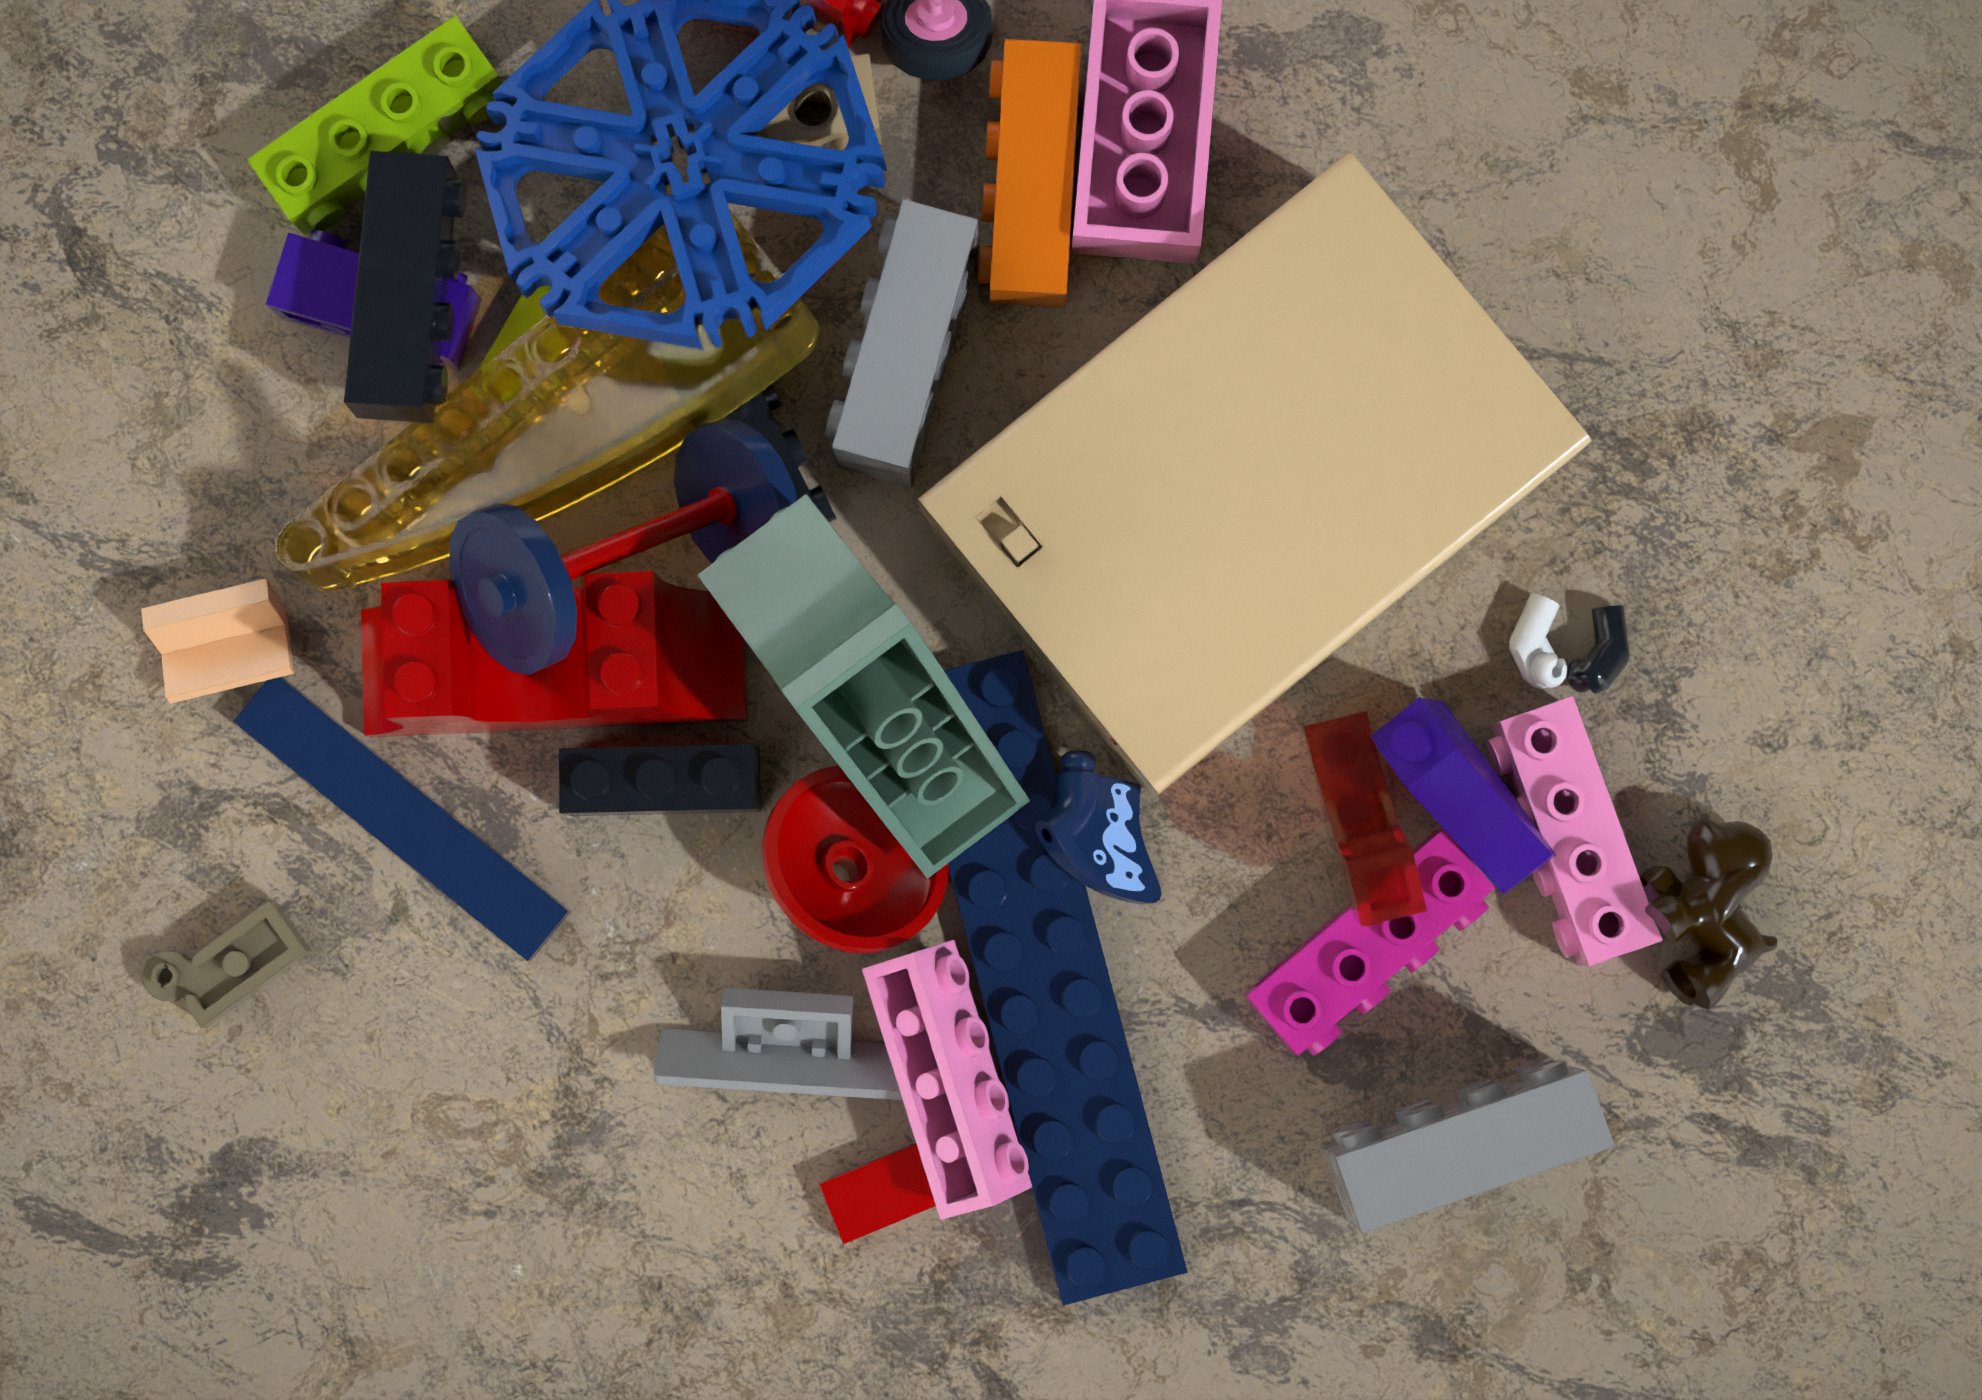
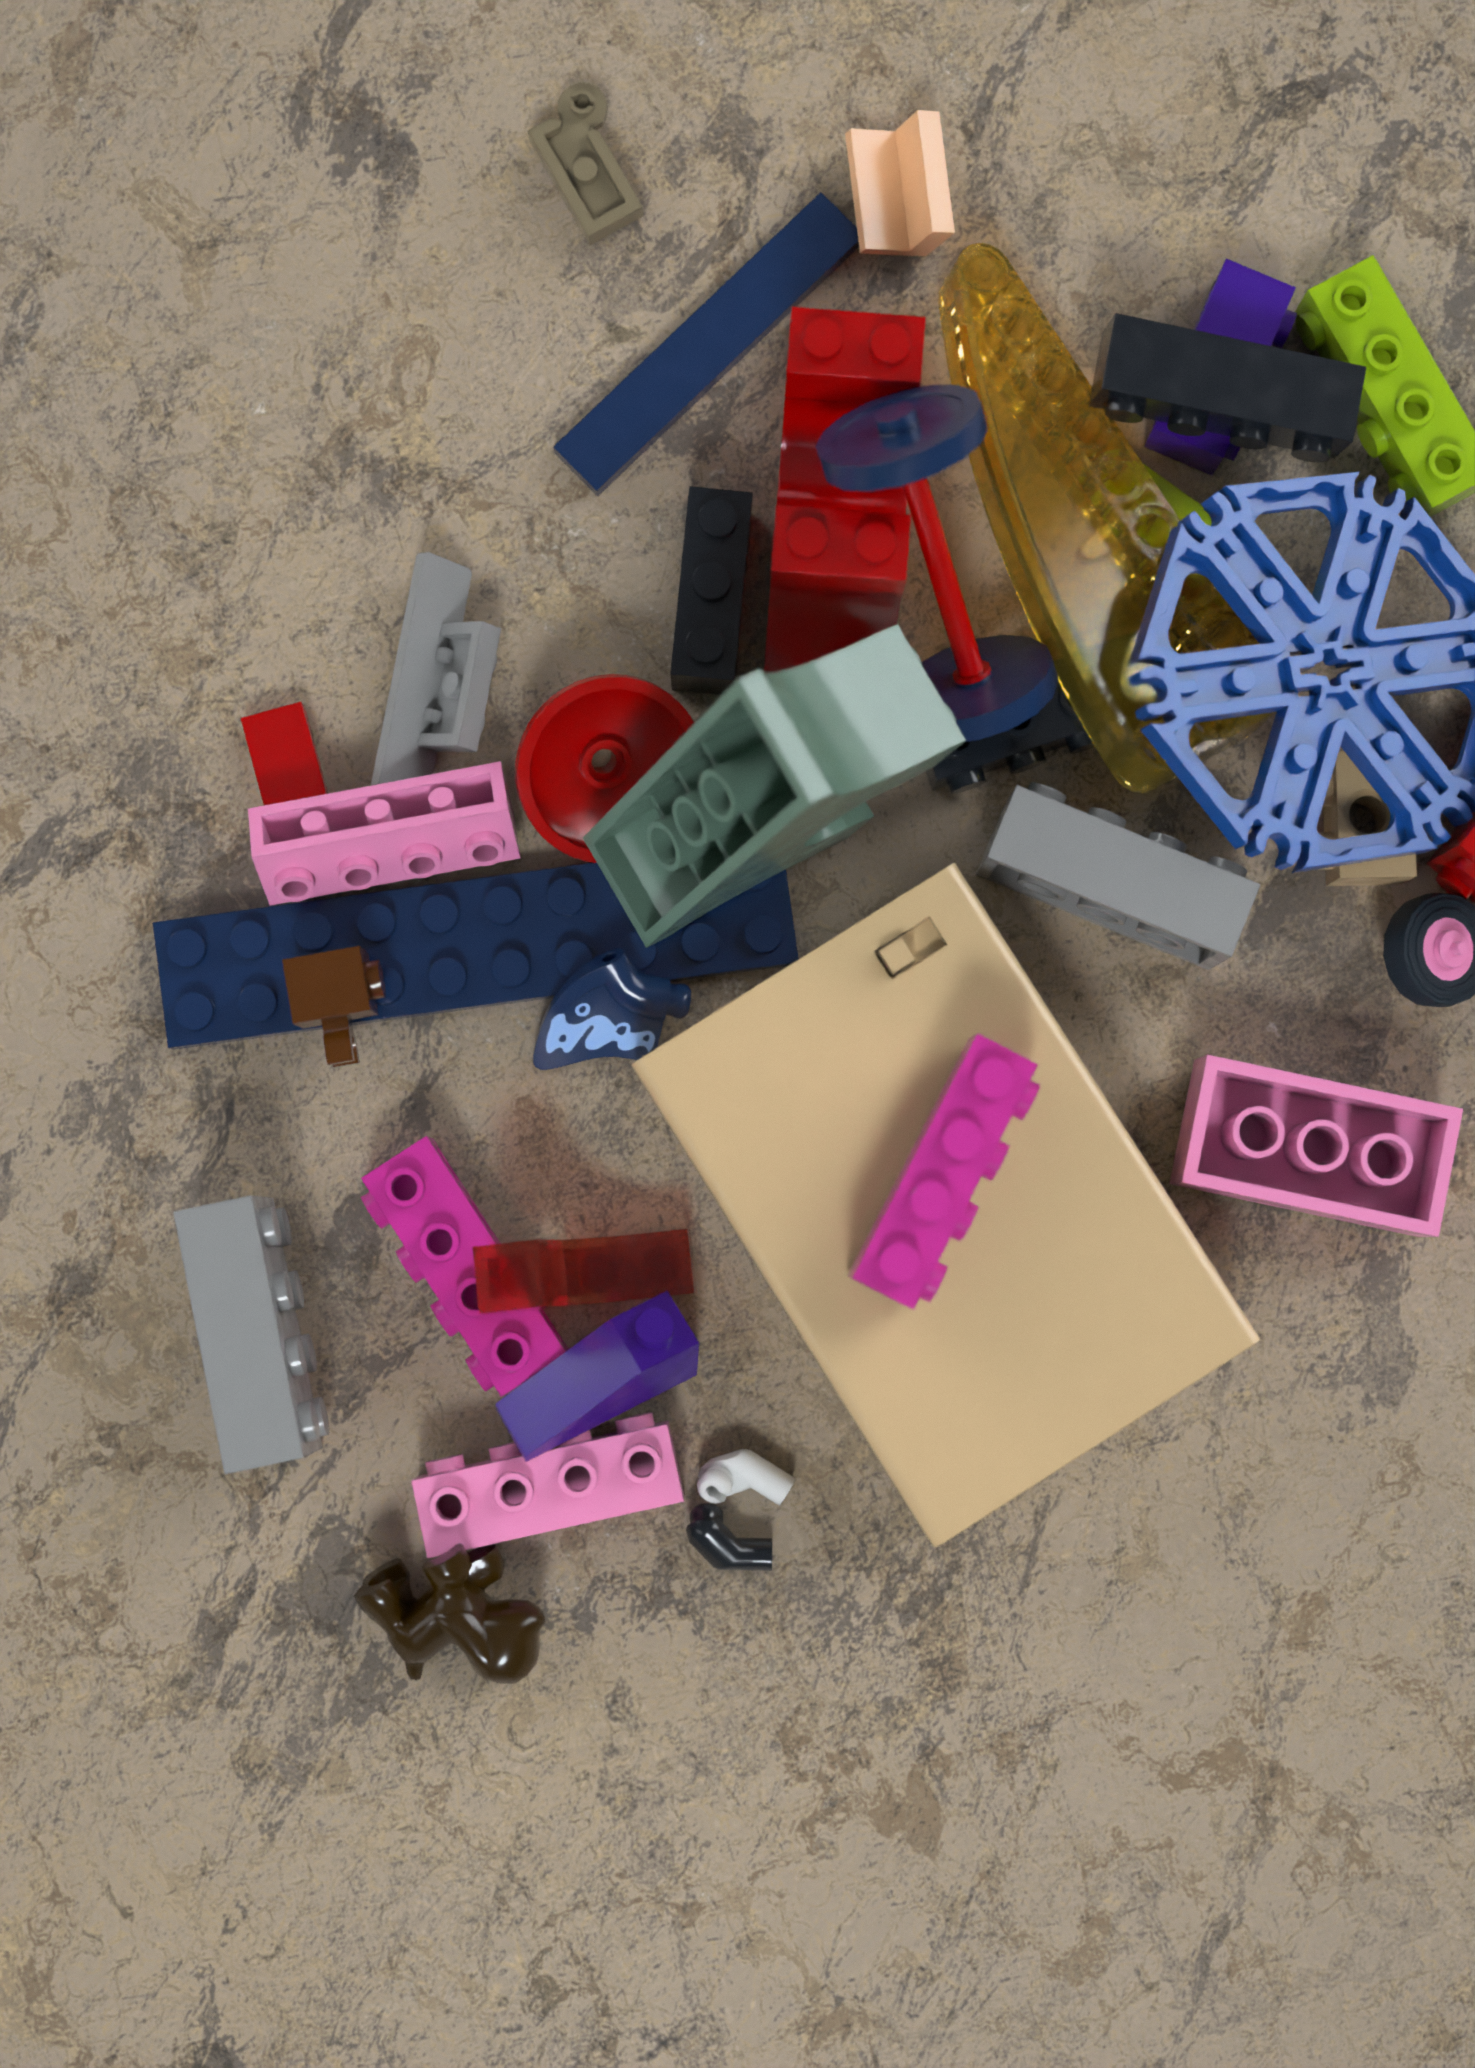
camera: 90 degrees right, 0 degrees up
(1033, 173) = (1279, 1027): orange brick -> none
(1117, 1109) = (332, 992): none -> reddish brown brick
(1233, 471) = (943, 1170): none -> dark pink brick

